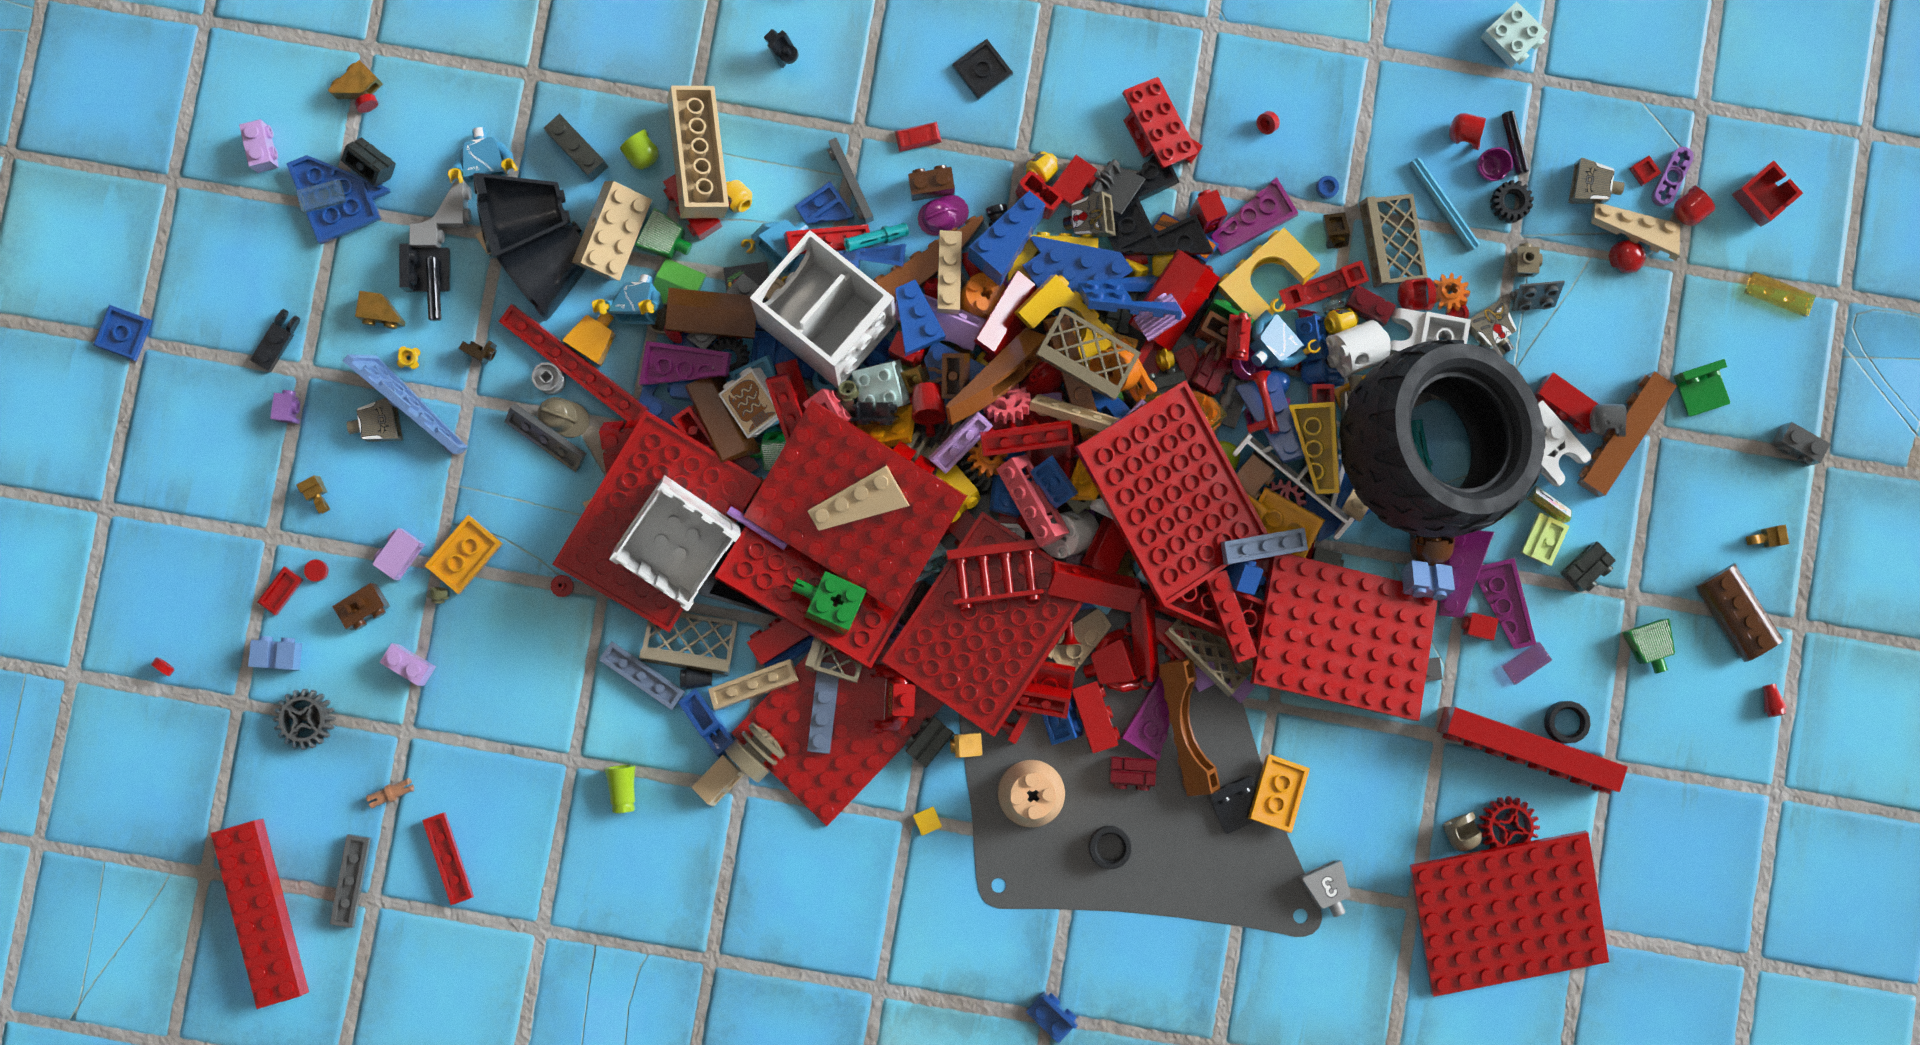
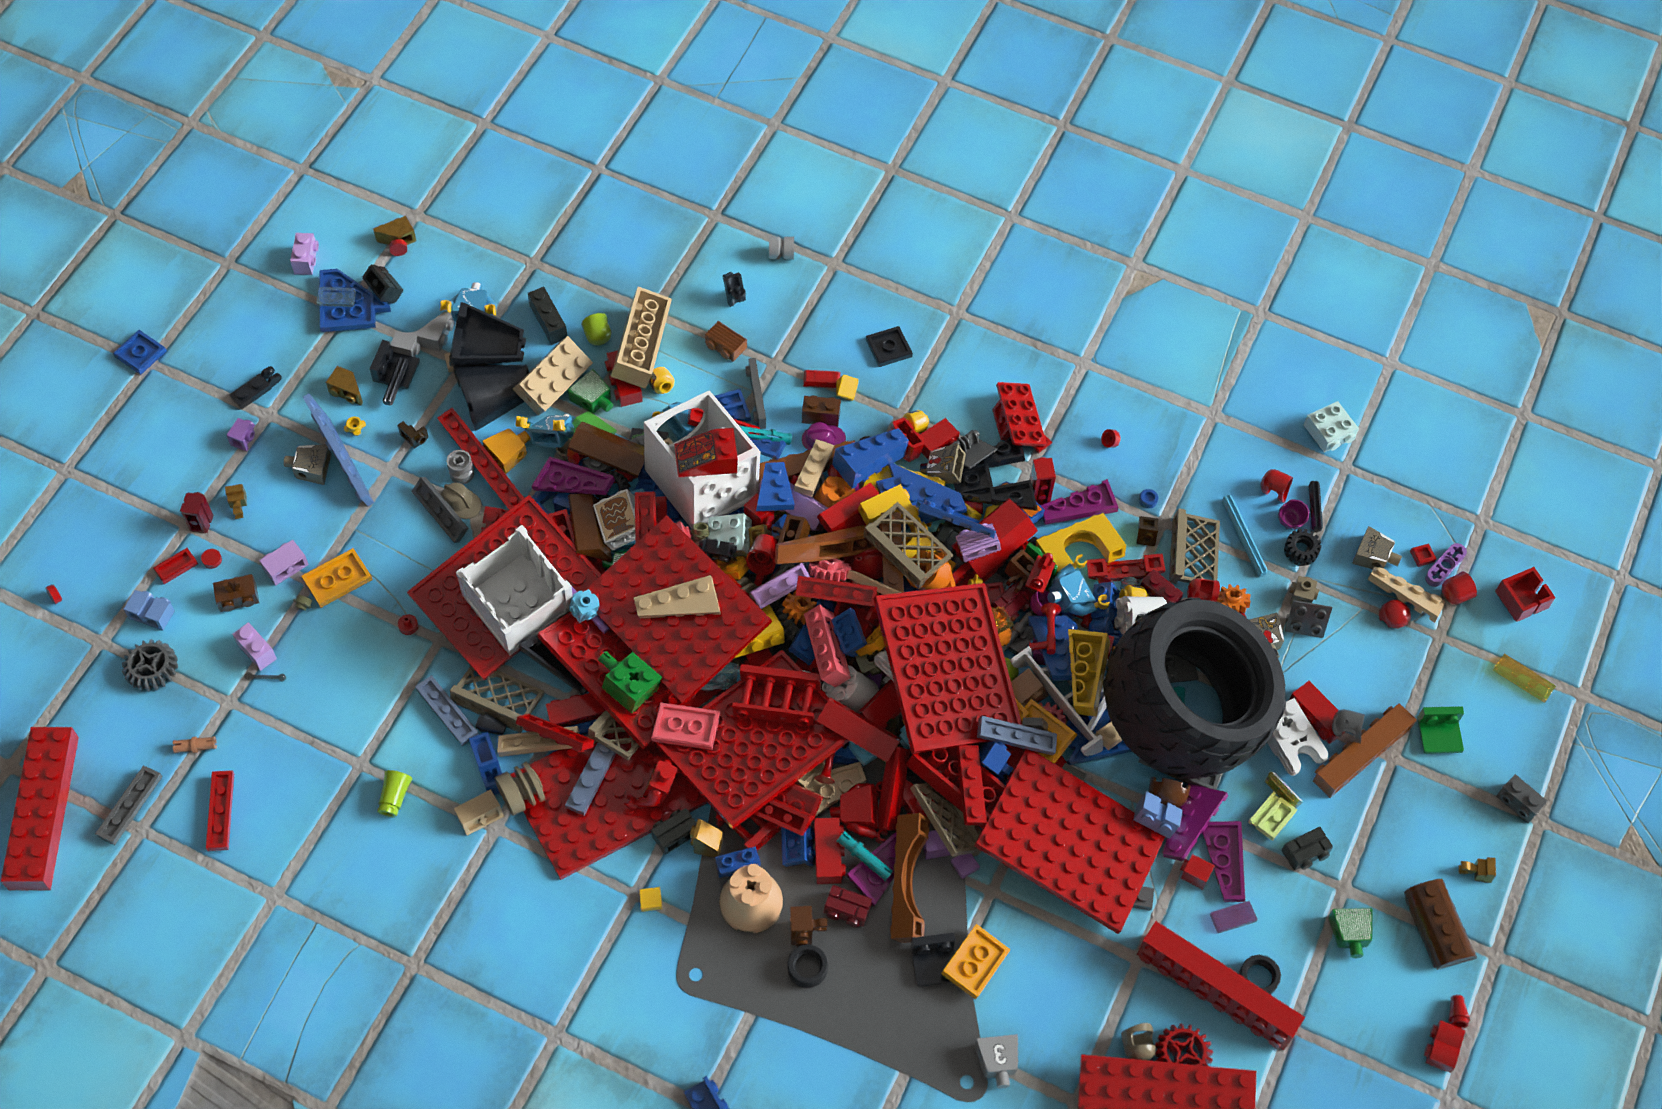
camera: 15 degrees right, 25 degrees down
(278, 525) = (196, 512): none -> dark red brick
(415, 696) = (248, 676): none -> clear smoke hinge
(747, 536) = (581, 610): none -> medium azure brick
(769, 676) = (550, 730): none -> red plate
(793, 121) = (725, 341): none -> dark orange brick
(836, 324) = (707, 454): none -> red slope
(908, 634) = (685, 726): none -> coral tile
(950, 142) = (846, 387): none -> yellow slope
(1007, 762) = (731, 862): none -> blue bracket
(1094, 811) = (803, 925): none -> reddish brown brick
(1128, 713) = (857, 850): none -> teal pin
(1278, 522) = (1037, 723): none -> dark grey tile
(1766, 742) = (1445, 1046): none -> red brick

